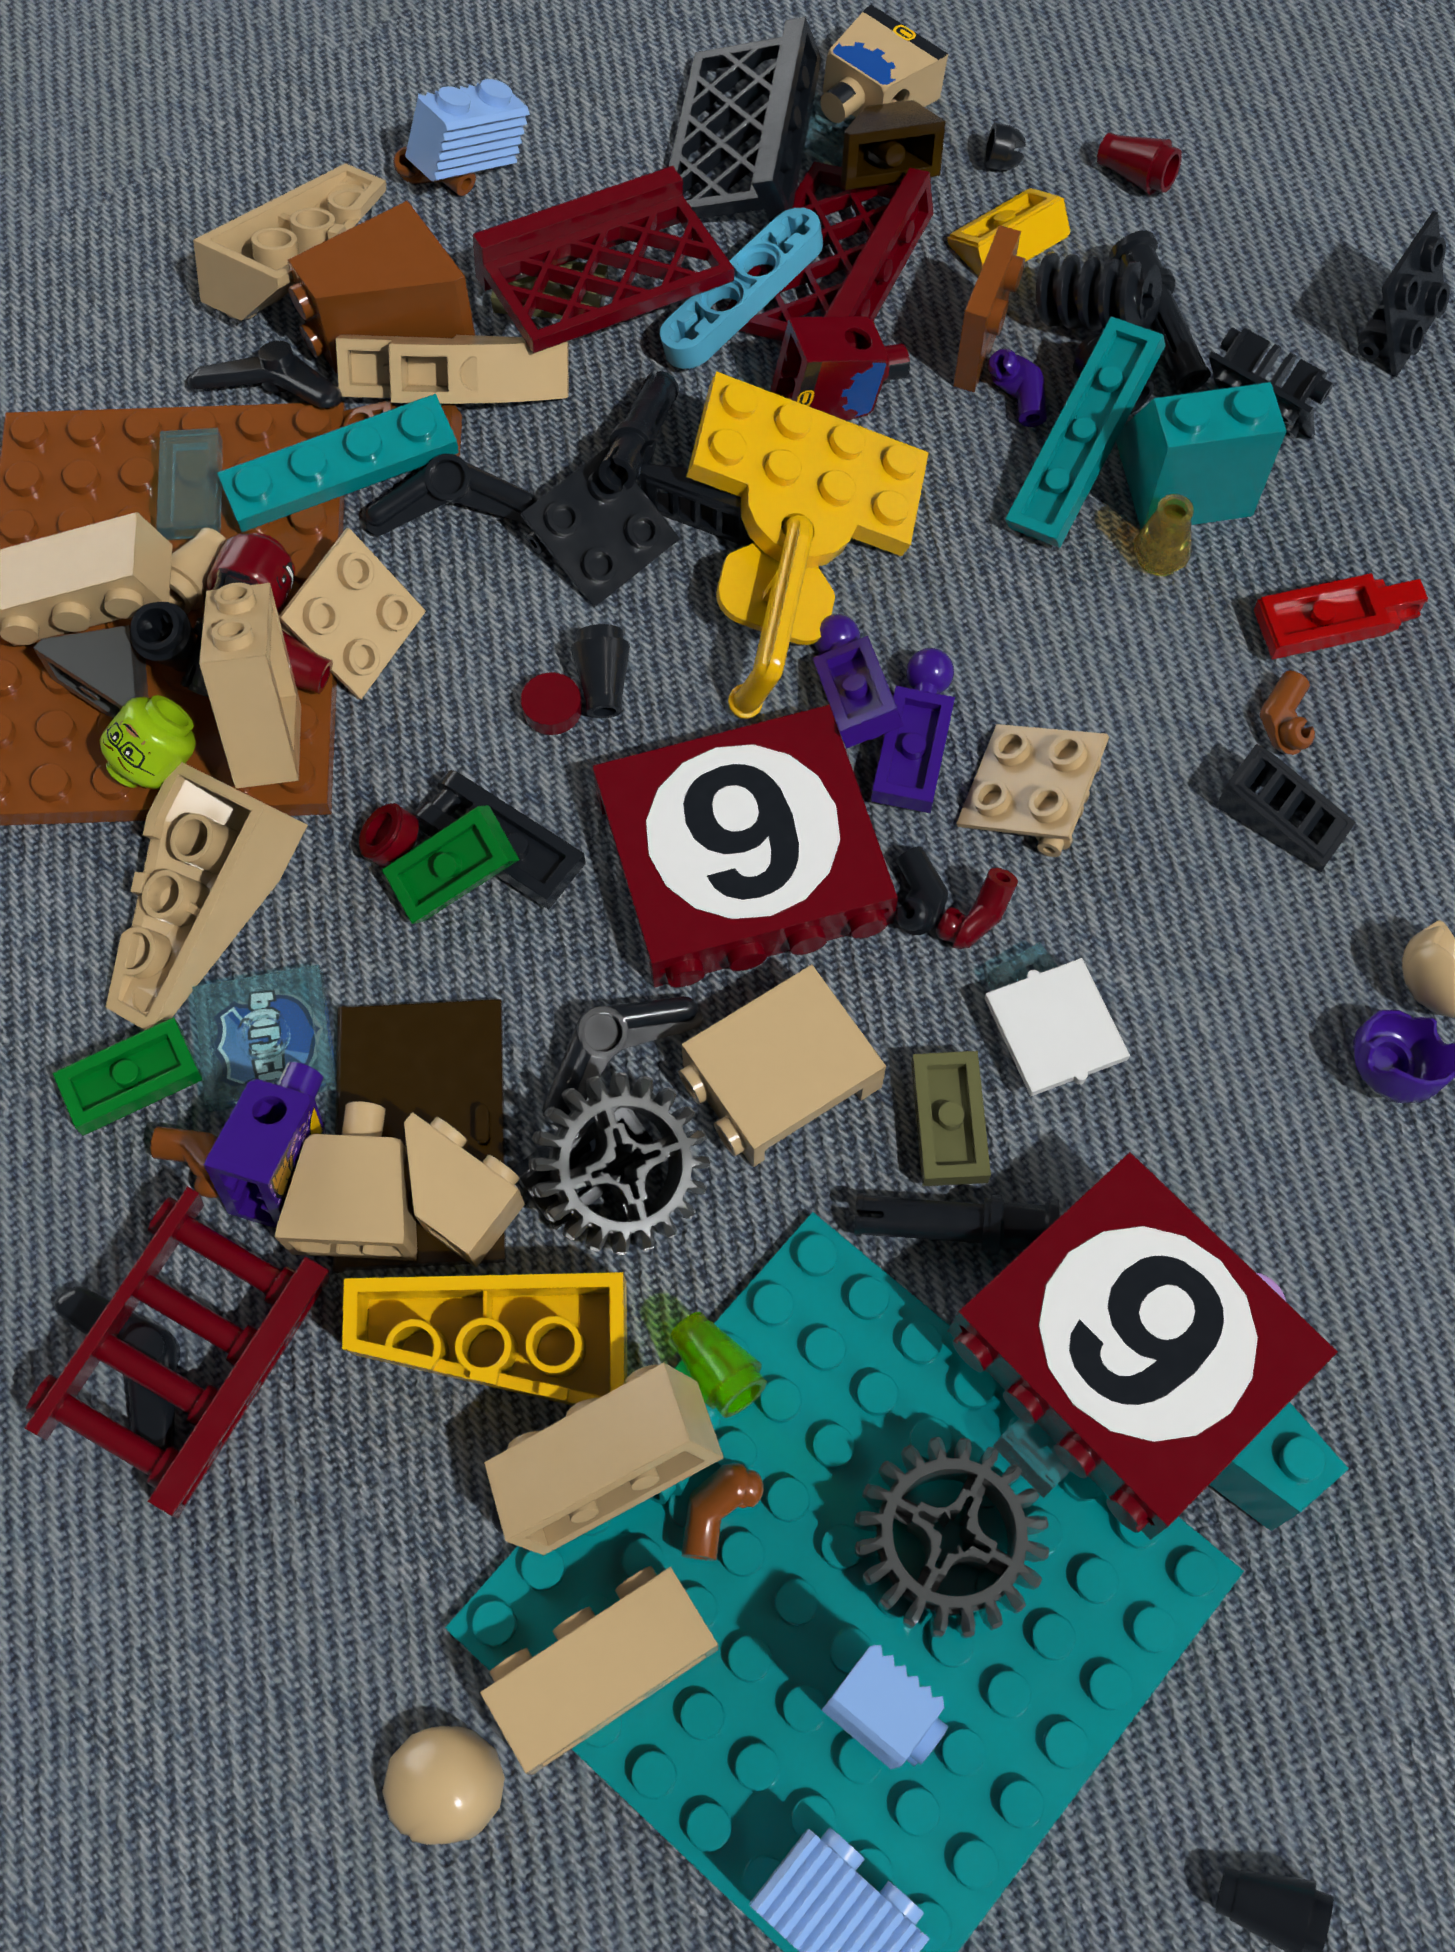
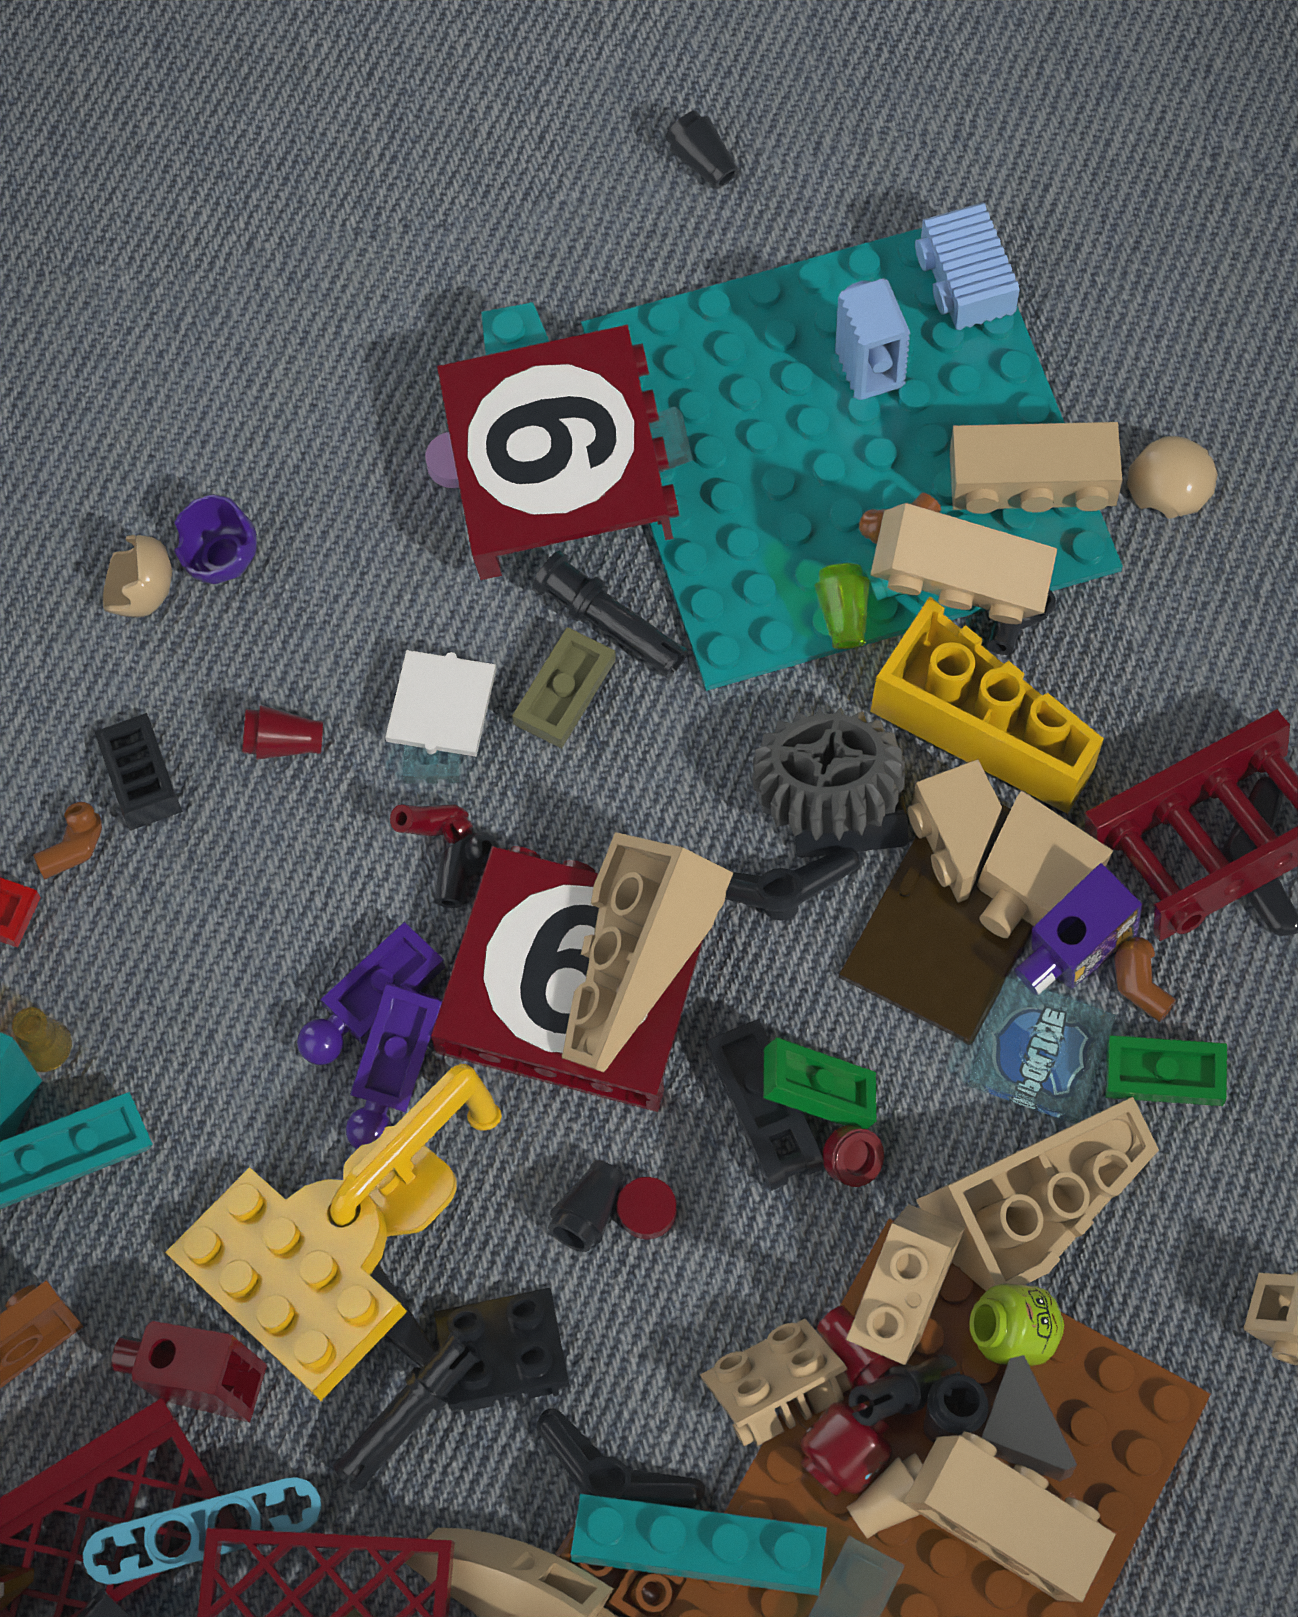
camera: 145 degrees left, 0 degrees up
(687, 885) = (650, 919): none -> tan wedge
(779, 1064) = (663, 783): tan panel -> none
(982, 1551) = (767, 392): dark grey gear -> none
(1023, 382) = (29, 1262): dark purple arm -> none
(1034, 784) = (311, 898): tan hinge -> none
(1185, 911) = (280, 734): none -> dark red cone

